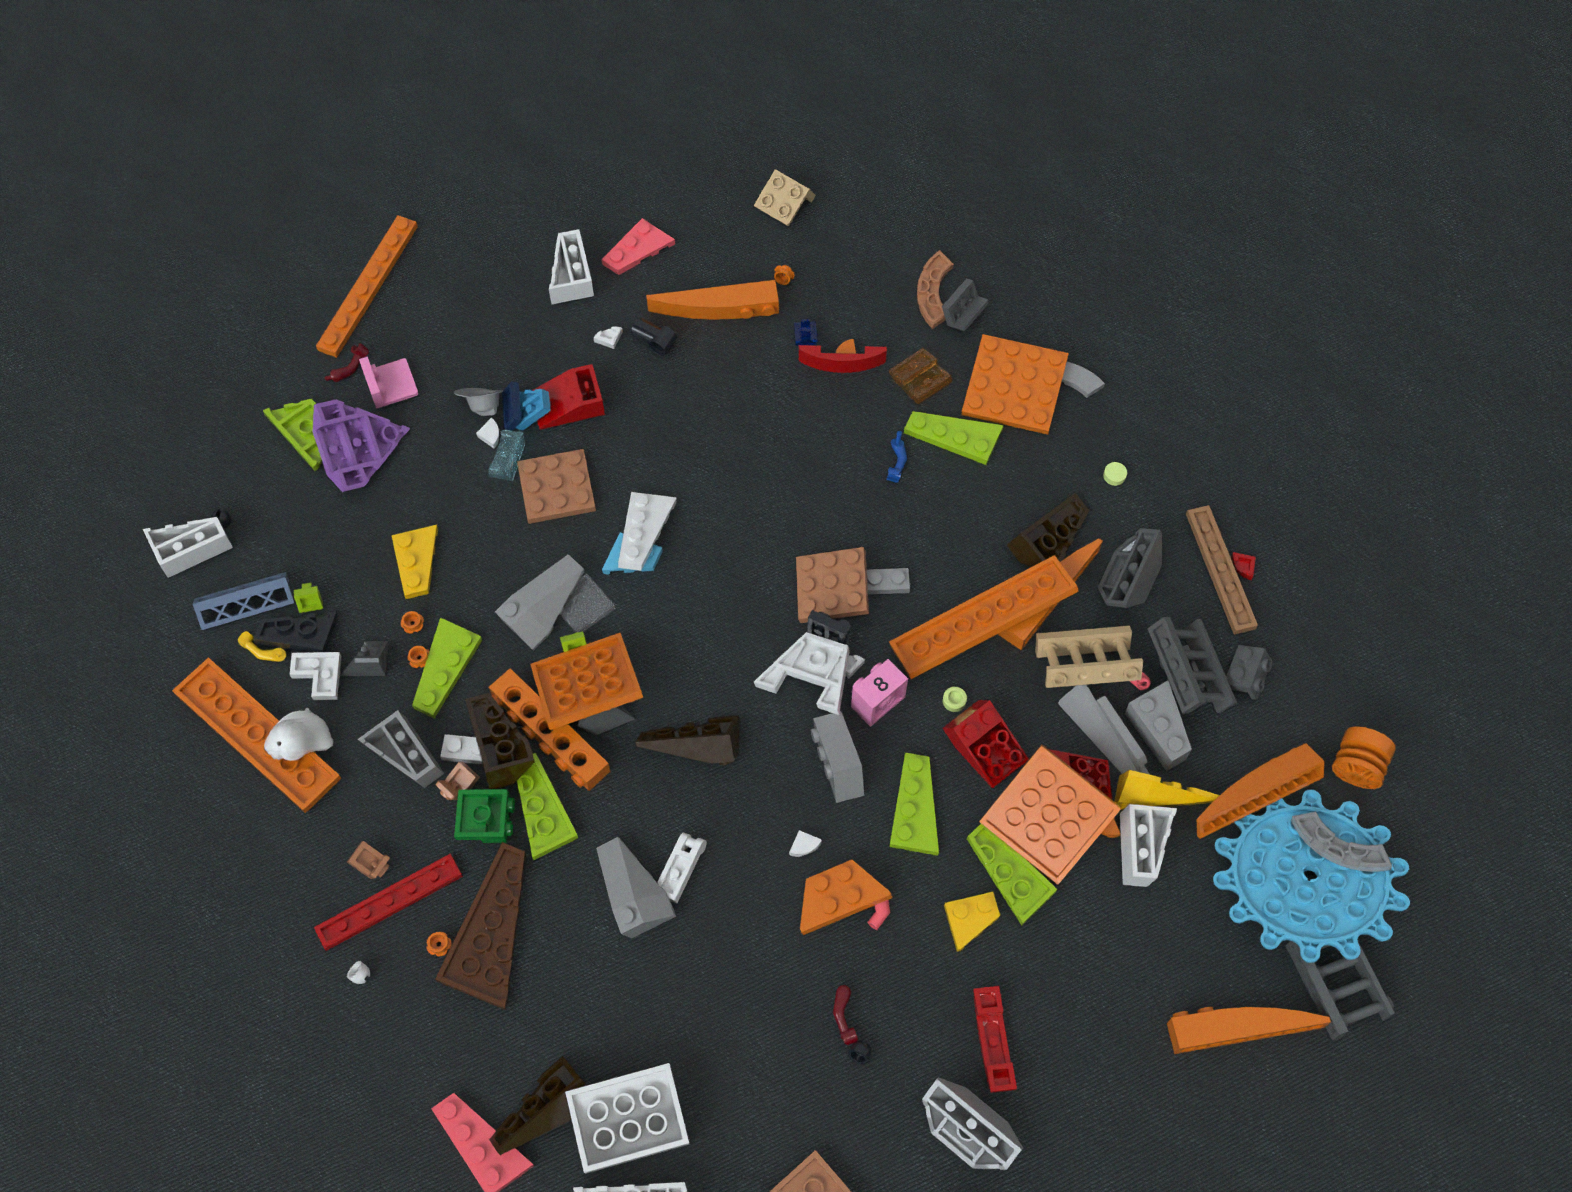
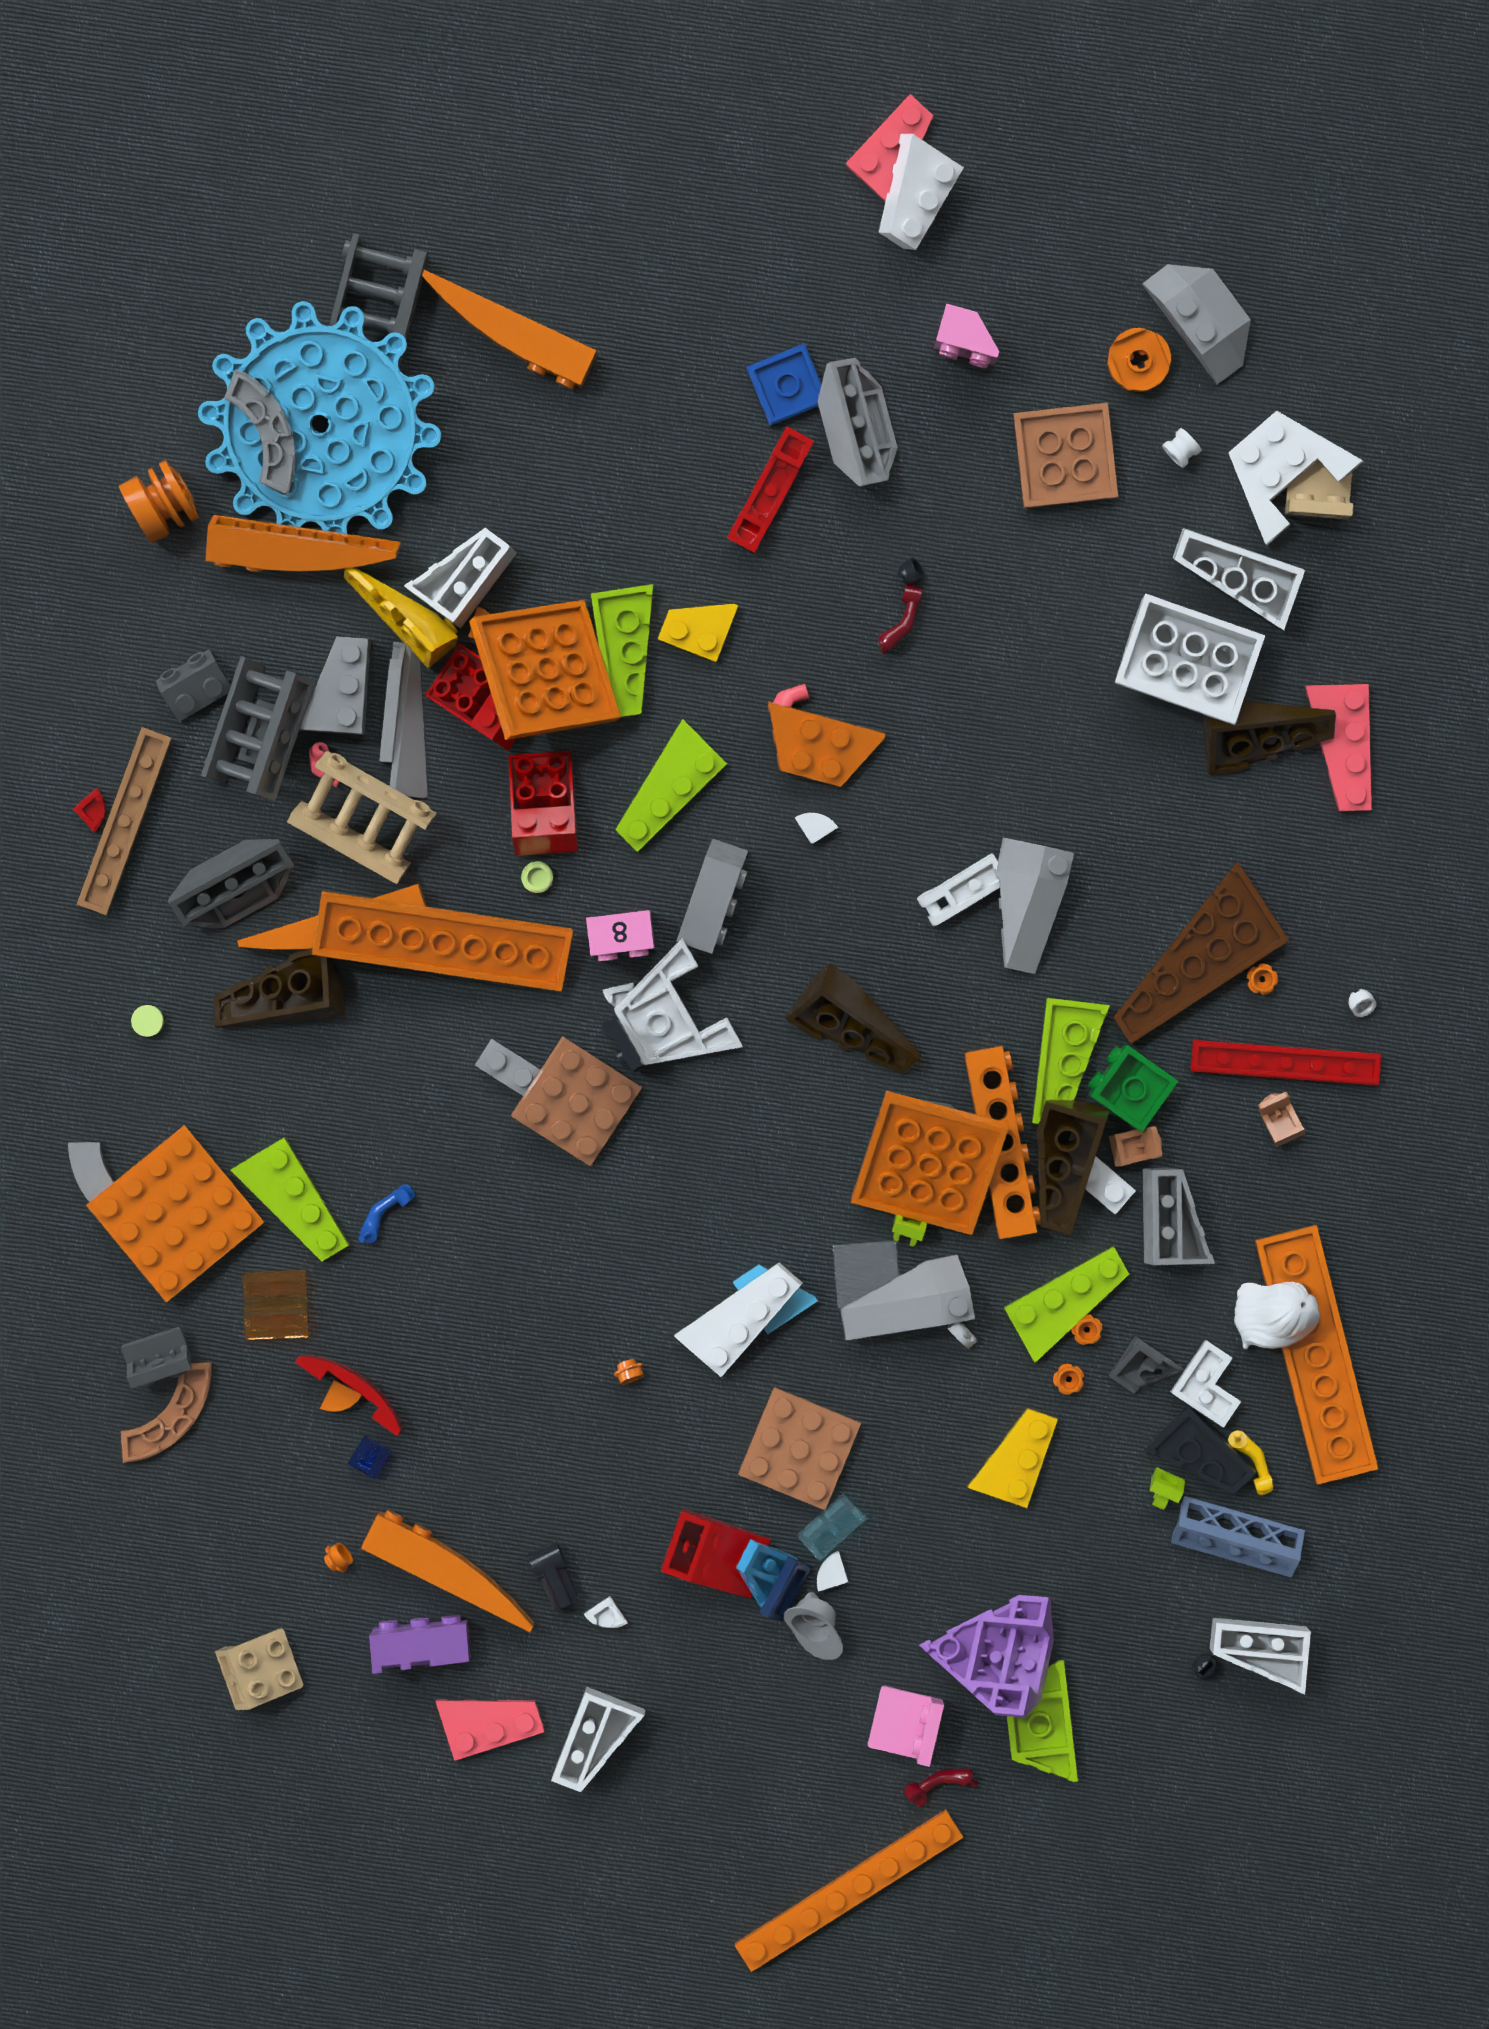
camera: 140 degrees left, 25 degrees up
(494, 603) = (962, 1334): none -> white tile
(688, 463) = (629, 1371): none -> orange plate
(707, 256) = (419, 1643): none -> medium lavender wedge
(1038, 1122) = (786, 384): none -> blue tile

